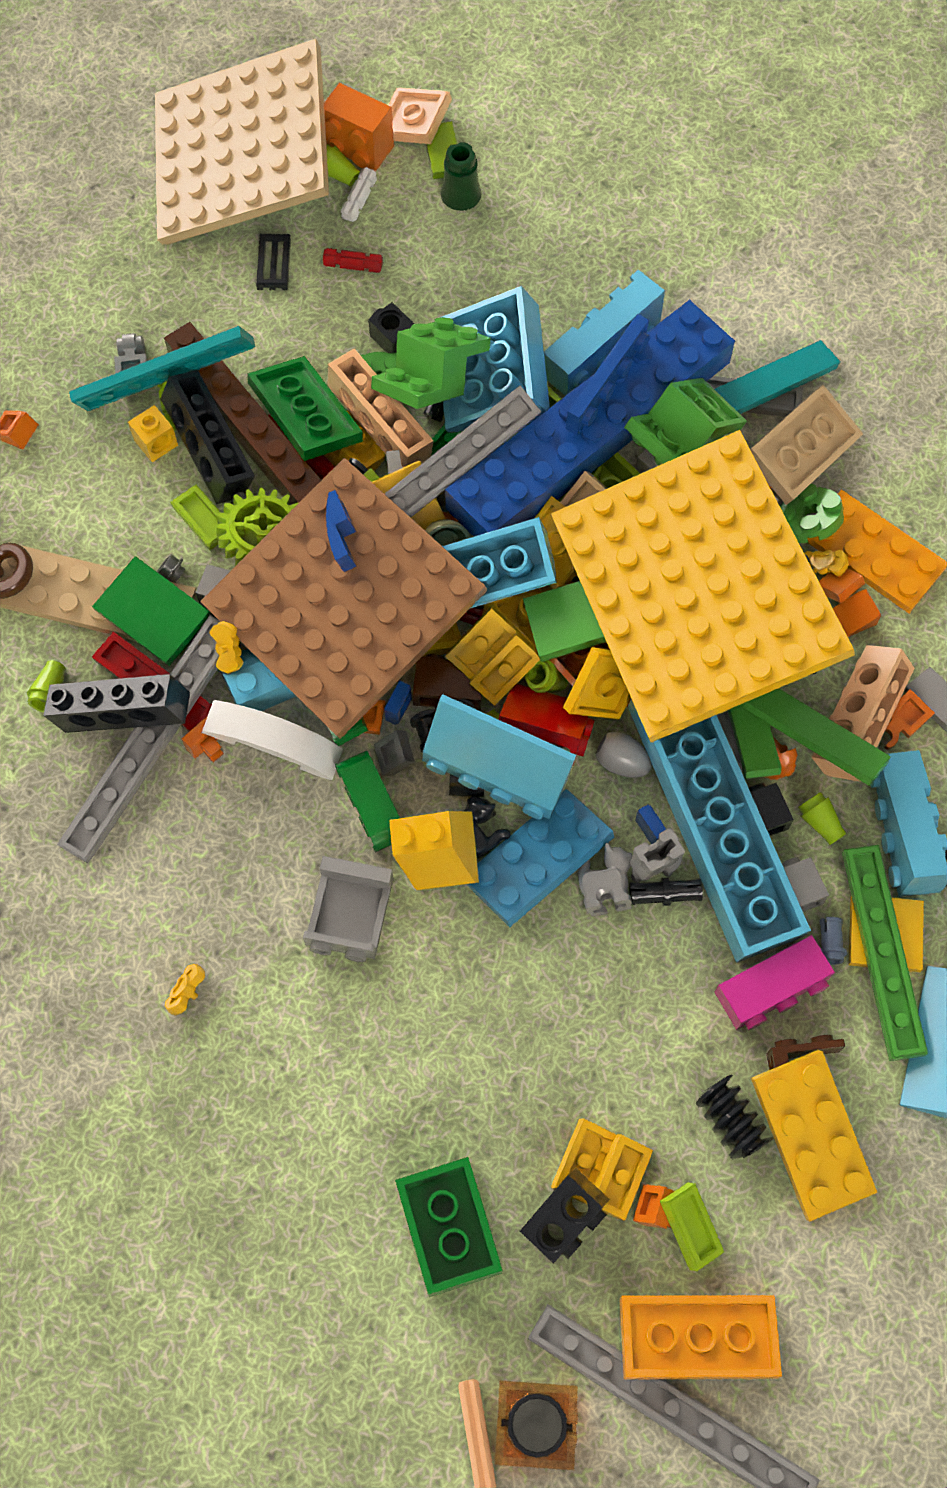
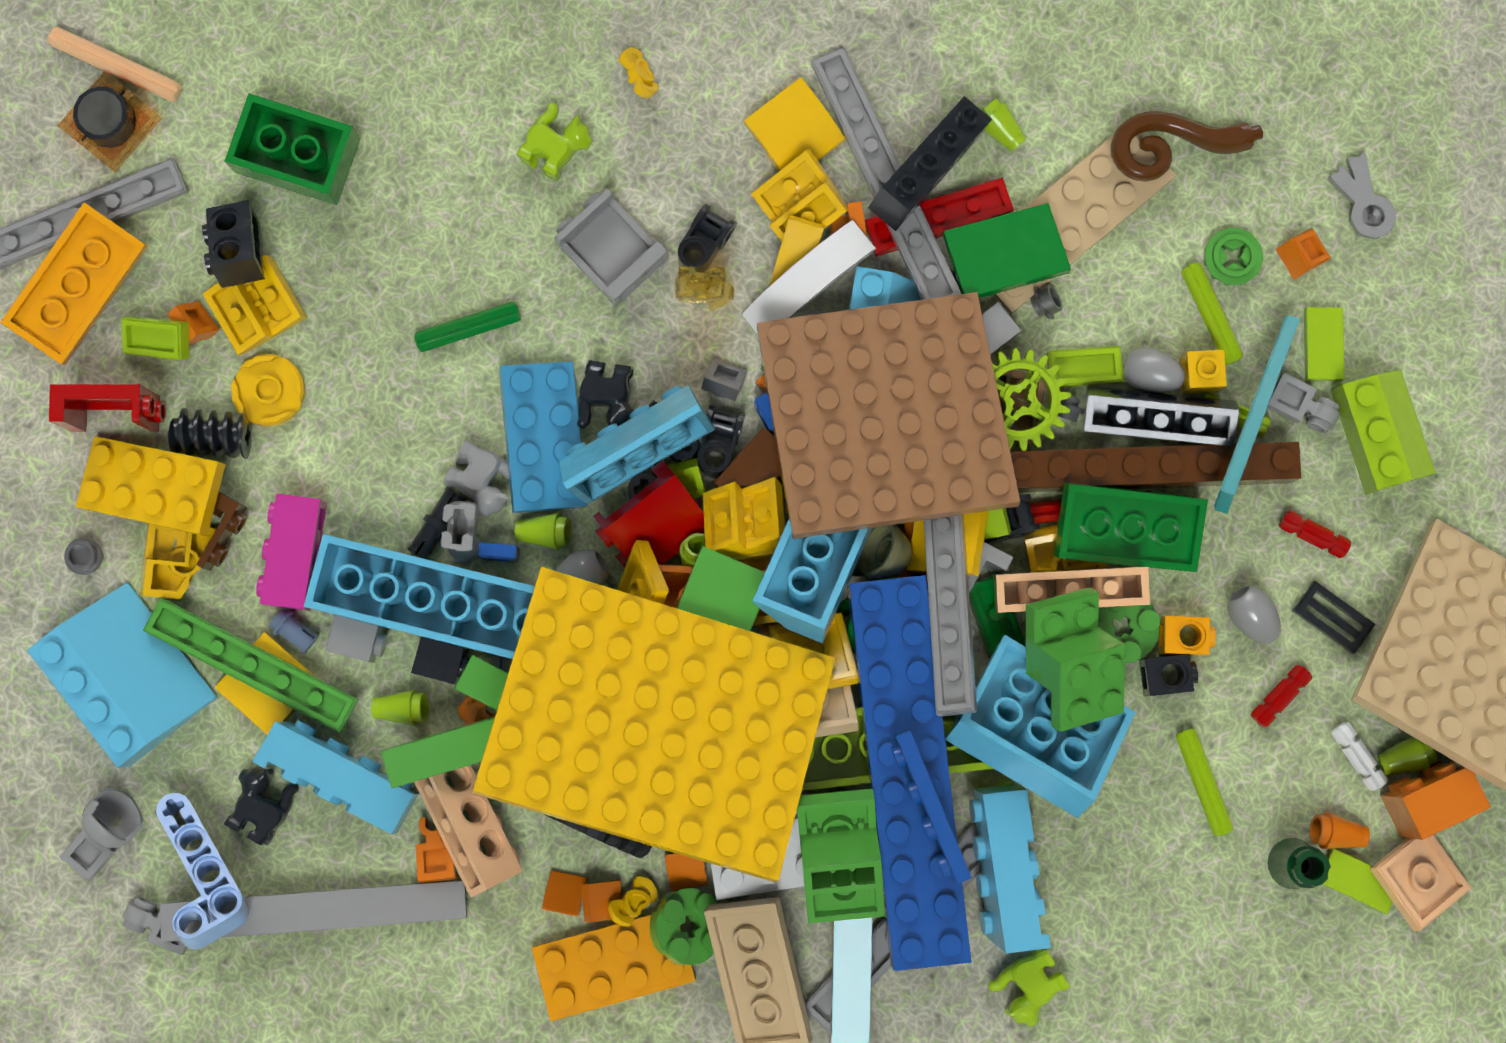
camera: 125 degrees right, 15 degrees up
(40, 460) = (1250, 258): none -> bright green gear
(74, 374) = (1324, 343): none -> lime tile
(100, 460) = (1212, 312): none -> lime axle
(119, 303) = (1383, 431): none -> lime slope
(153, 835) = (793, 124): none -> yellow slope
(175, 465) = (1153, 371): none -> light grey animal
(211, 788) = (800, 191): none -> yellow slope
(221, 303) = (1315, 534): none -> red axle
(227, 647) = (914, 287): yellow piece -> none
(251, 764) = (798, 240): none -> yellow tile
(286, 840) = (707, 235): none -> black piece
(296, 1011) = (554, 148): none -> lime animal
(308, 304) = (1254, 614): none -> light grey animal
(333, 808) = (704, 287): none -> clear yellow animal
(339, 526) = (951, 445): blue slope -> none
(356, 323) = (1169, 640): none -> light orange brick
(369, 797) = (694, 328): green beam -> none
(421, 177) = (1337, 832): none -> orange cone
(436, 849) = (606, 349): yellow slope -> none
(447, 271) = (1204, 782): none -> lime axle
(493, 980) = (467, 326): none -> green axle
(609, 806) = (546, 530): none -> lime cone
(651, 1108) = (273, 400): none -> yellow tile
(672, 281) = (1030, 978): none -> lime animal
(775, 1225) = (71, 401): none -> red panel
(866, 1076) = (168, 571): none -> yellow slope
(909, 1156) = (83, 556): none -> flat silver plate

